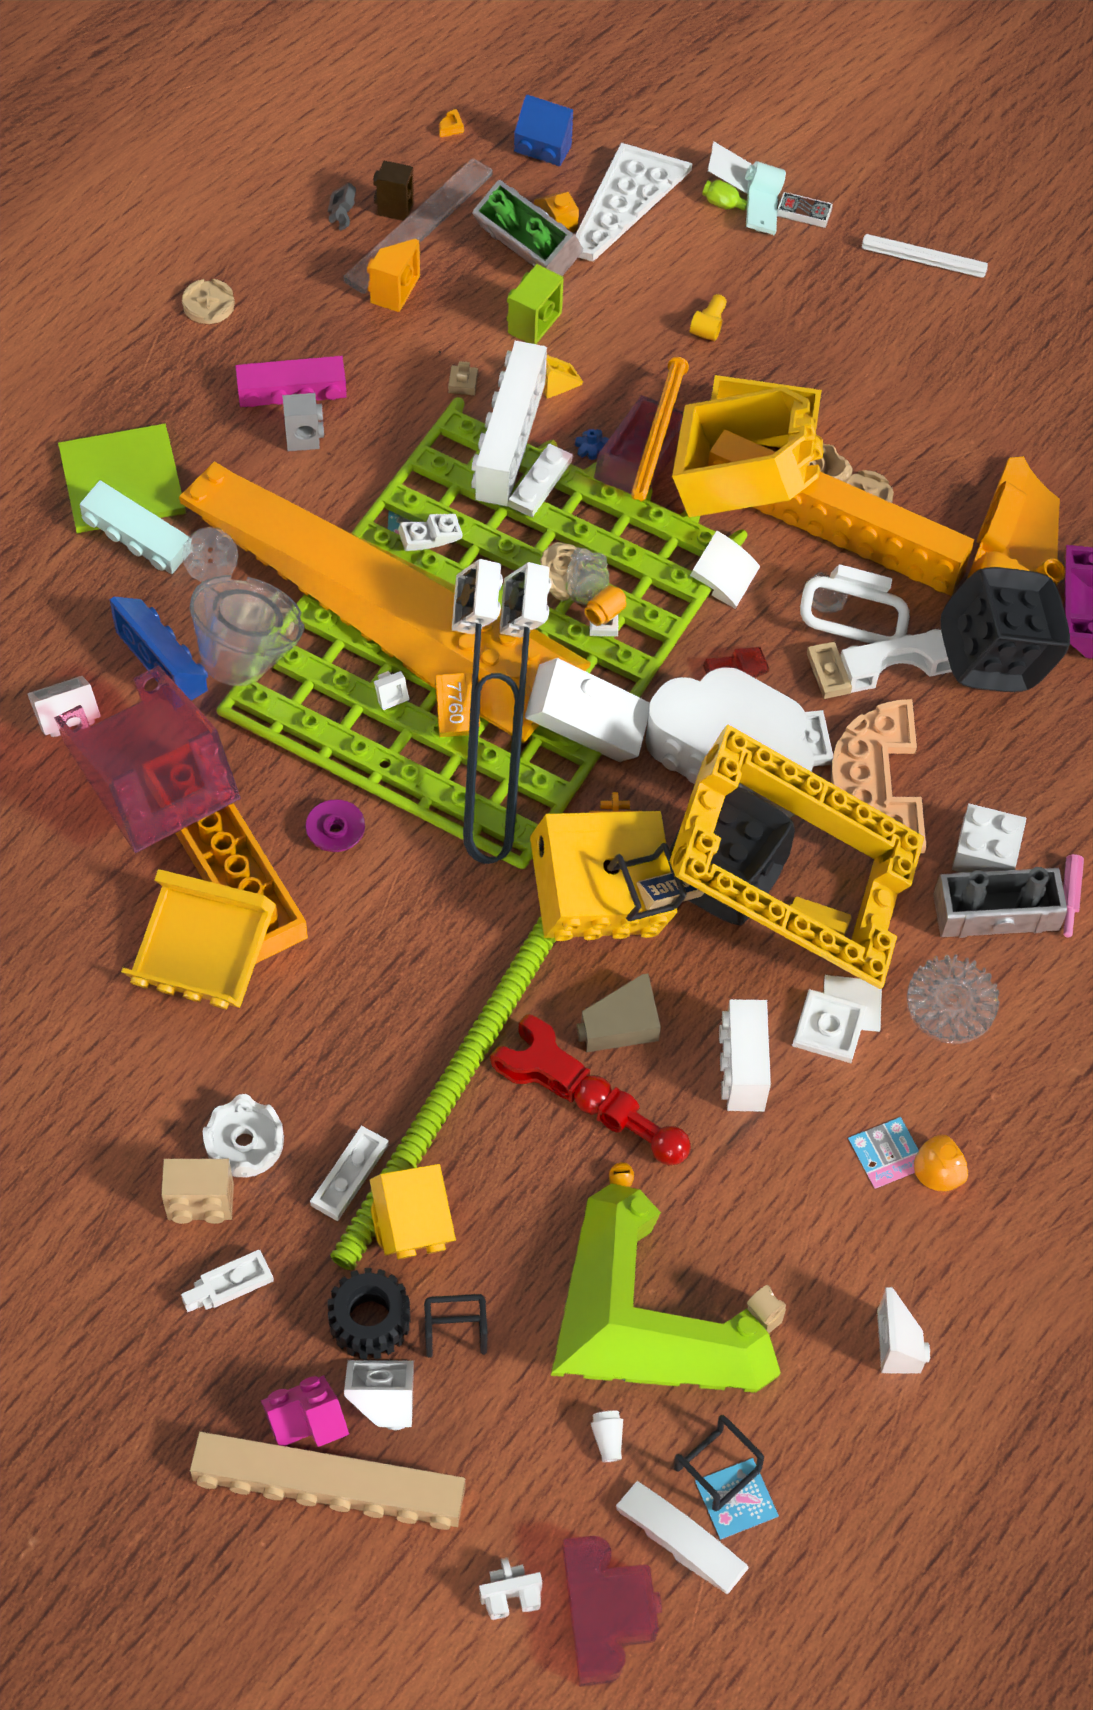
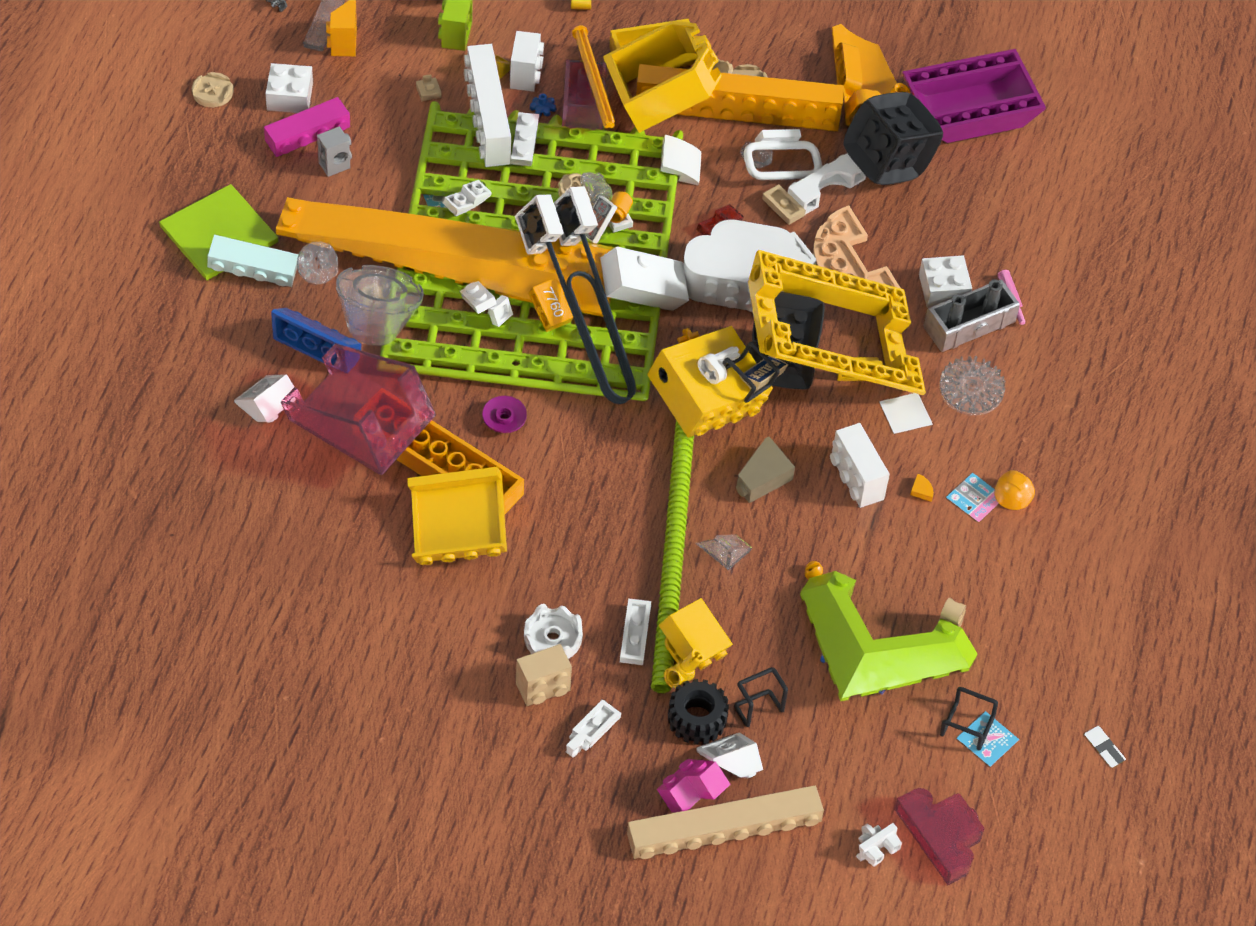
camera: 25 degrees left, 5 degrees down
(294, 326) = (289, 88): none -> white brick
(371, 1252) = (683, 670): none -> yellow pin
(372, 664) = (478, 297): none -> white plate
(525, 1105) = (726, 549): none -> clear slope
(571, 613) = (603, 211): none -> tile
(593, 381) = (526, 61): none -> white brick
(593, 1094) = (749, 521): red piece -> none
(600, 857) = (712, 366): none -> white piece
(608, 1434) = (888, 727): white cone -> none
(683, 1537) = (968, 770): white slope -> none
(820, 1115) = (922, 488): none -> light orange tile
(829, 1026) = (899, 431): white tile -> none
(891, 1573) = (1105, 746): none -> white sticker
(900, 1337) = (1041, 602): white slope -> none

